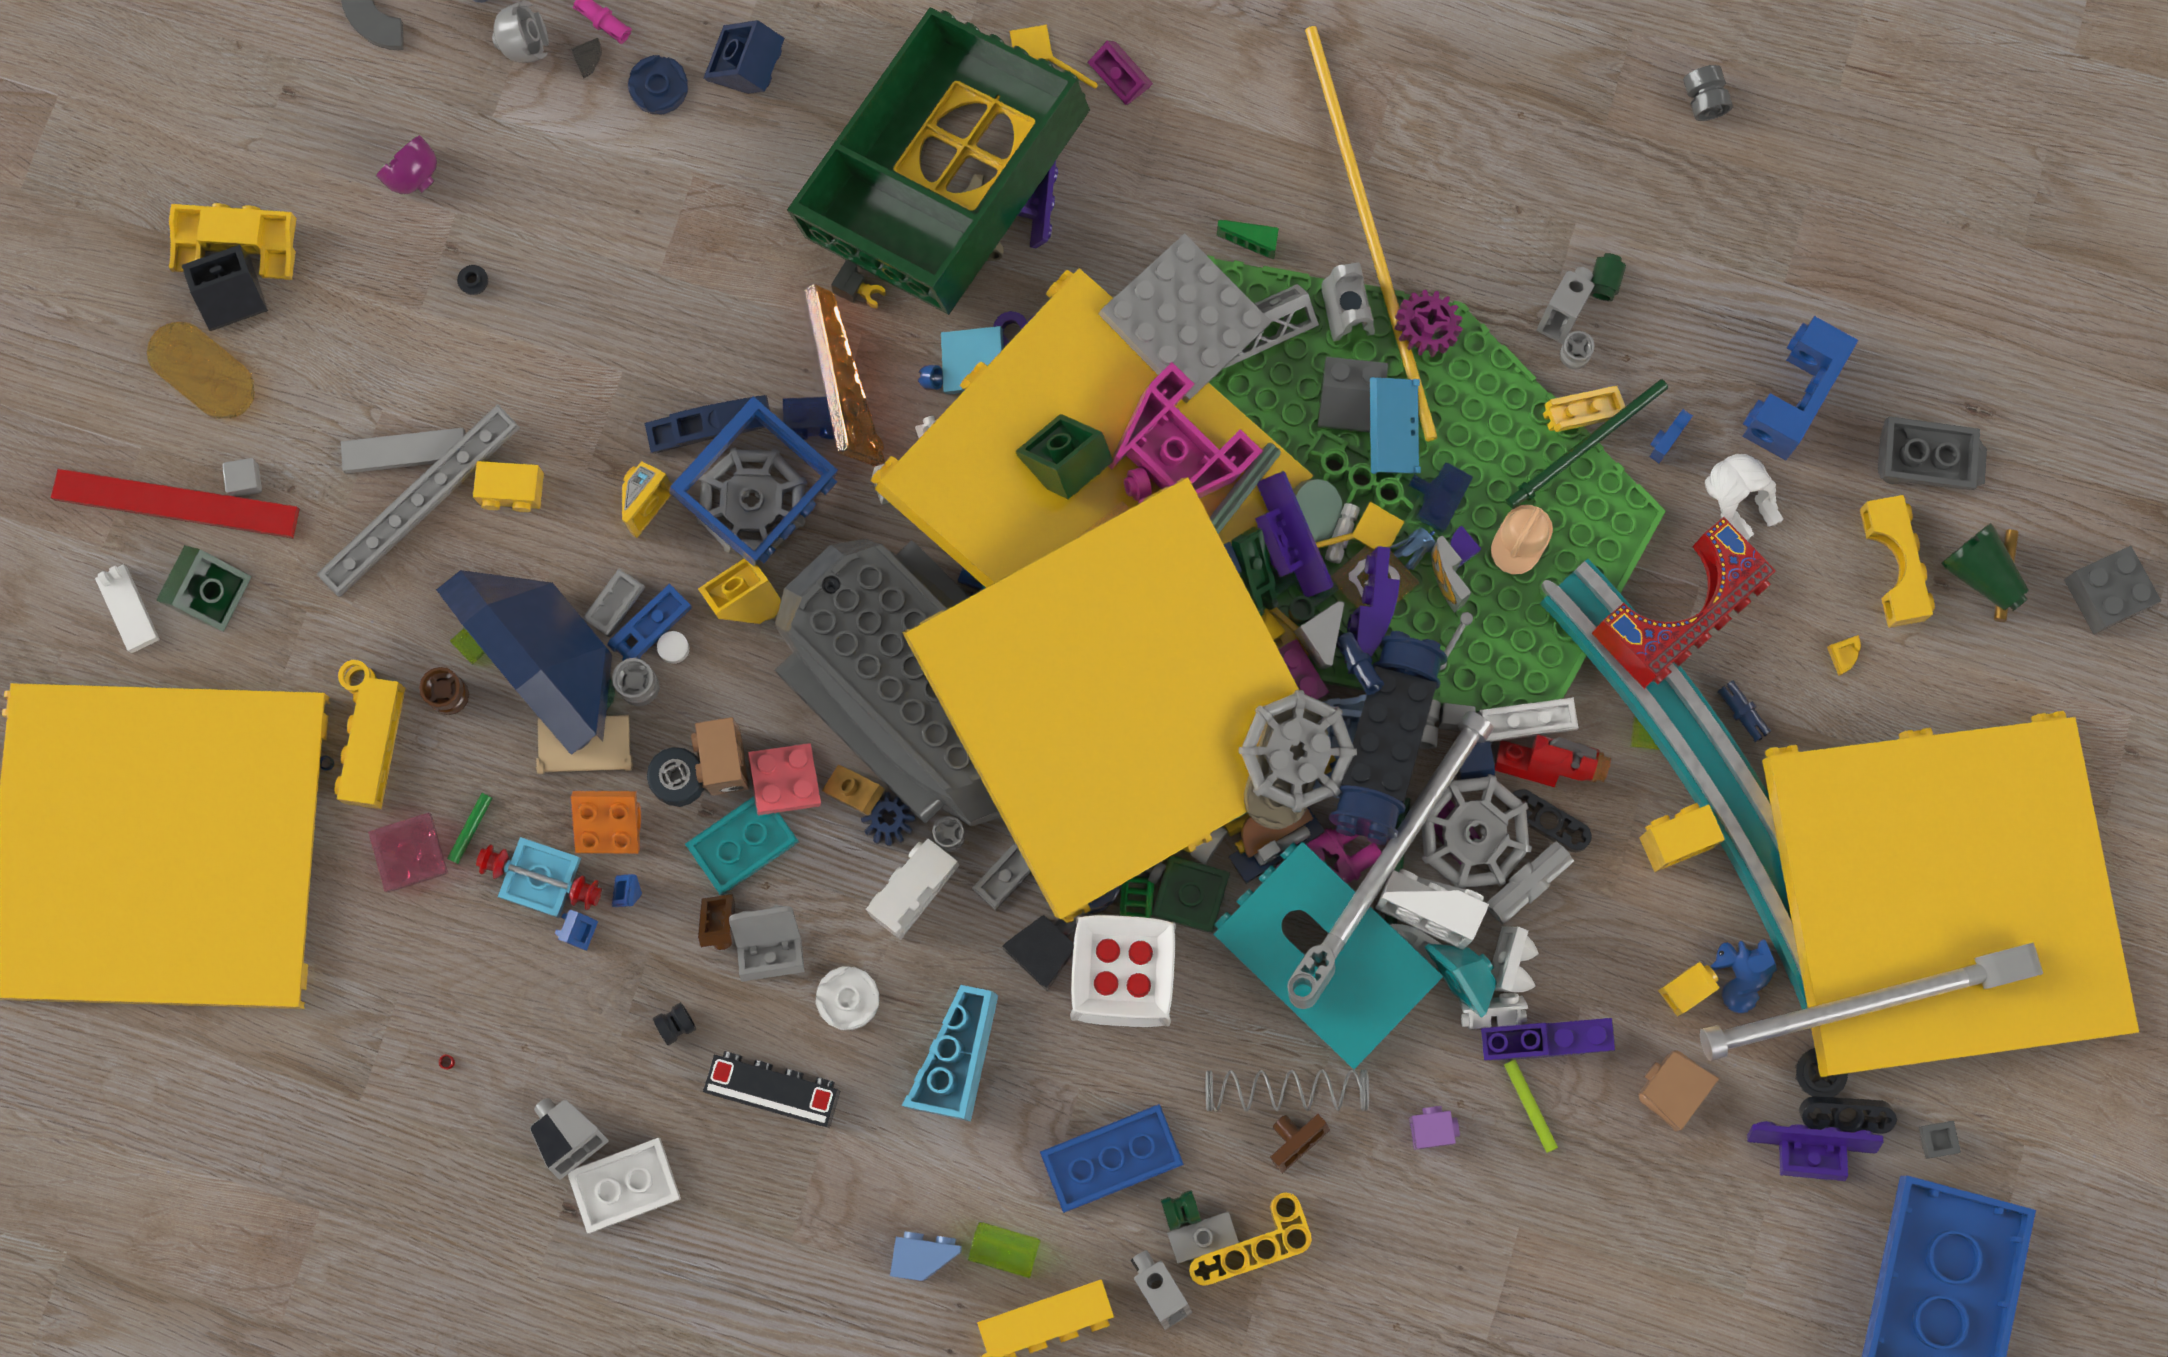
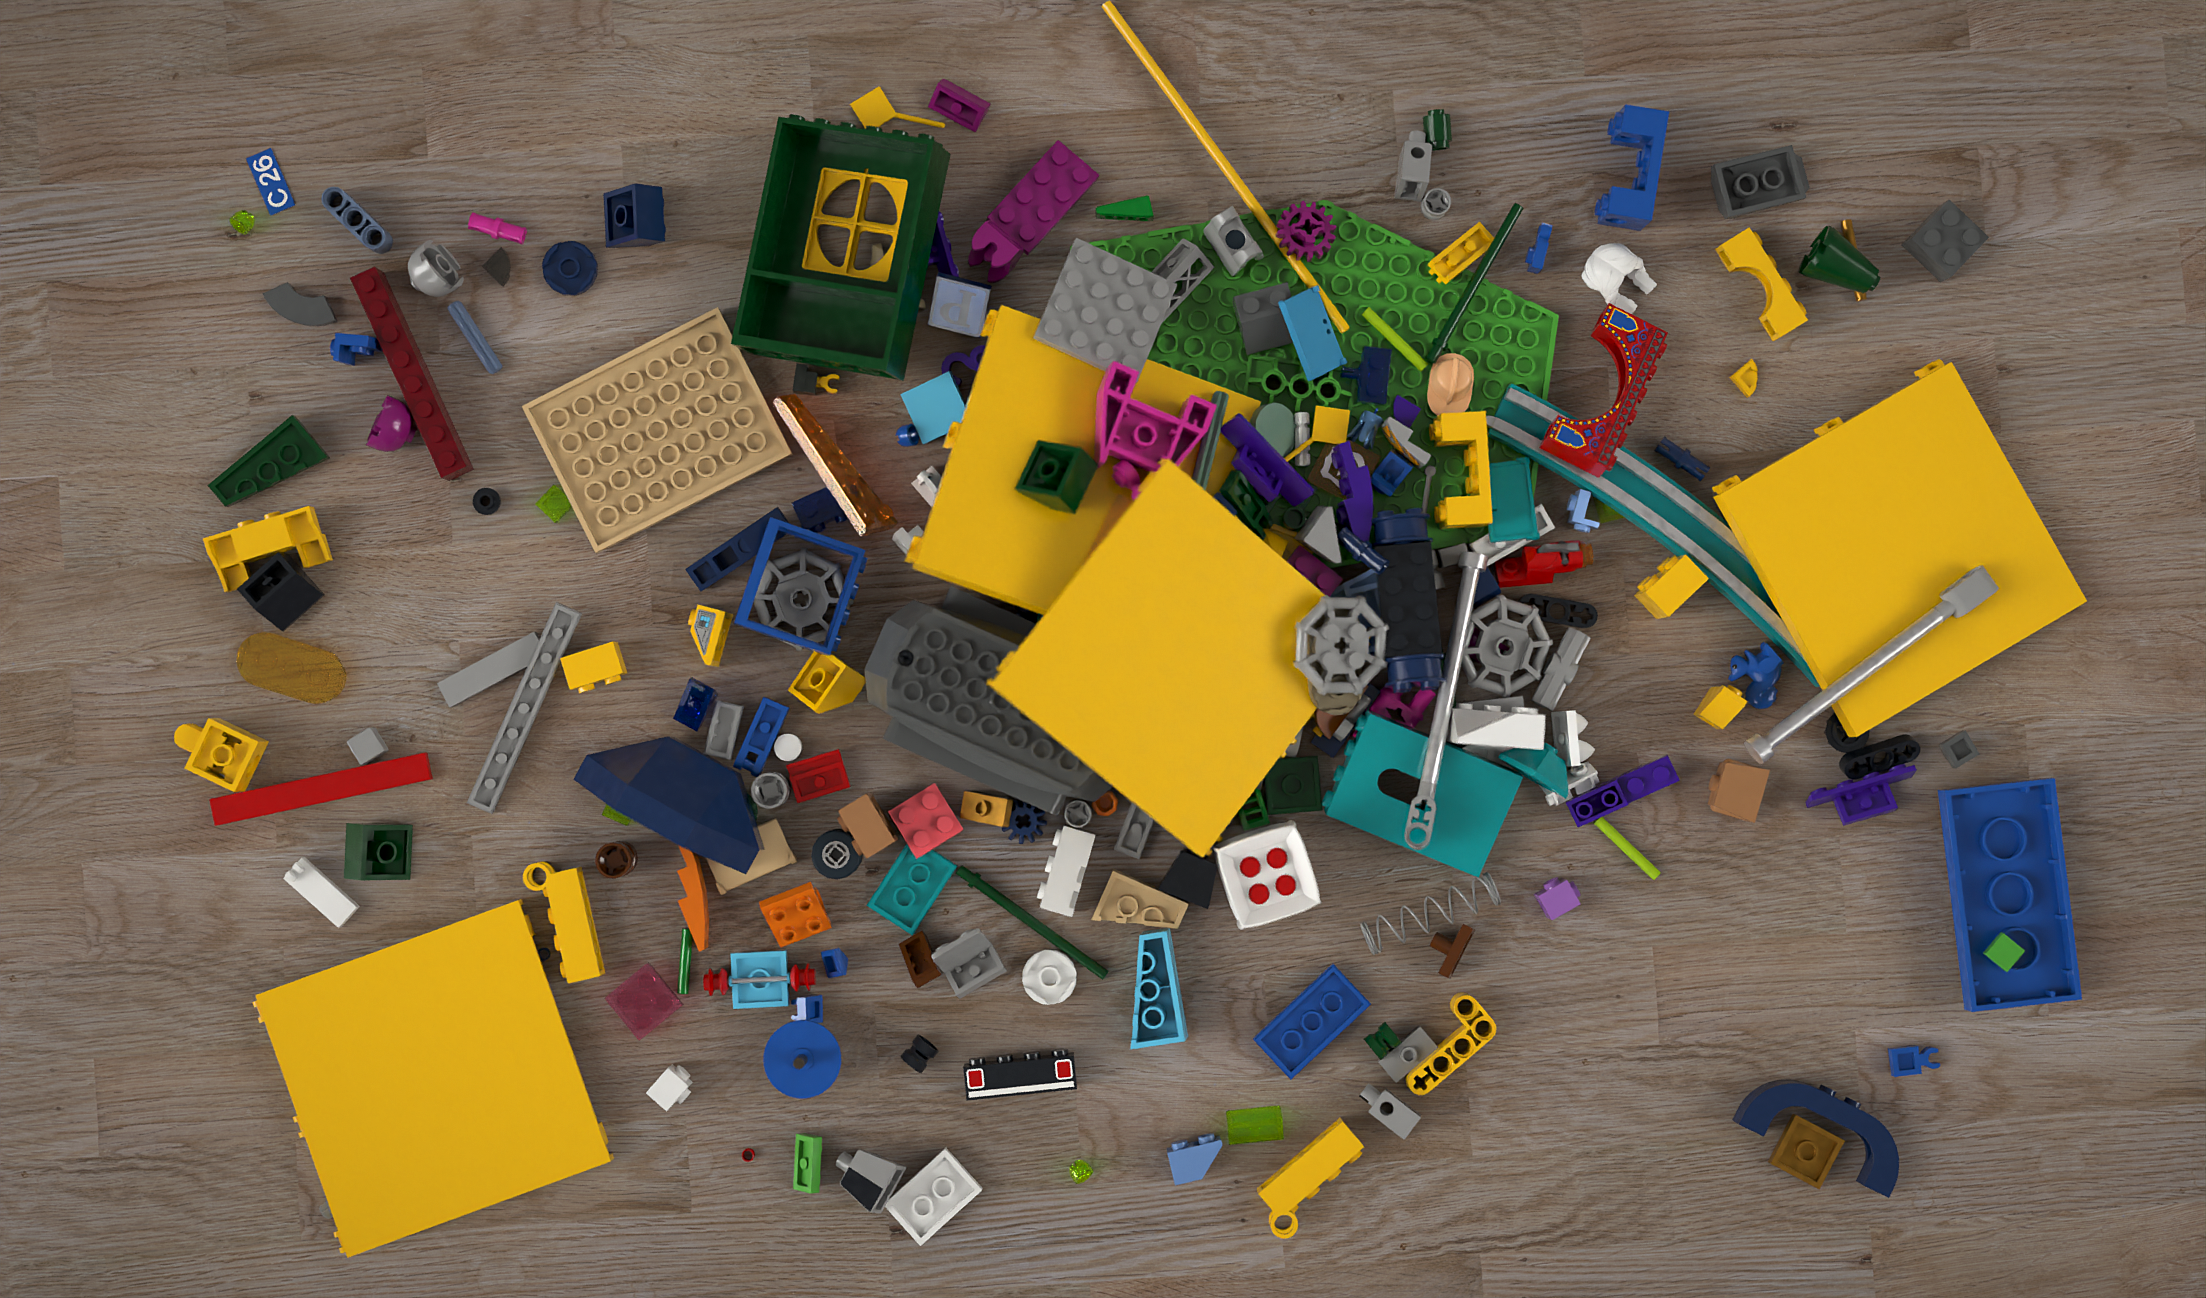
camera: 30 degrees left, 10 degrees up
(91, 422) = (221, 750): none -> yellow brick
(277, 158) = (274, 459): none -> dark green wing
(396, 954) = (671, 1087): none -> white brick
(404, 72) = (346, 346): none -> blue bracket
(453, 126) = (411, 373): none -> dark red brick
(505, 1094) = (807, 1163): none -> bright green plate
(506, 770) = (695, 904): none -> orange slope
(532, 115) = (474, 337): none -> sand blue axle
(541, 309) = (554, 503): none -> clear neon green tile
(547, 976) = (802, 1059): none -> blue piece
(596, 562) = (695, 704): none -> clear blue slope
(676, 275) = (657, 430): none -> tan plate
(691, 688) = (818, 776): none -> red plate
(794, 1223) = (1080, 1172): none -> clear neon green hinge
(810, 864) = (975, 881): none -> dark green bar
(974, 954) = (1138, 902): none -> tan wing
(982, 836) = (1106, 804): none -> orange tile
(1037, 263) = (959, 305): none -> tile
(1149, 200) = (1031, 210): none -> magenta hinge
(1423, 602) = (1390, 472): none -> blue bracket
(1480, 468) = (1394, 339): none -> lime bar
(1516, 585) = (1463, 430): none -> yellow plate
(1545, 670) = (1513, 500): none -> teal door
(1612, 716) = (1577, 506): none -> light blue bracket

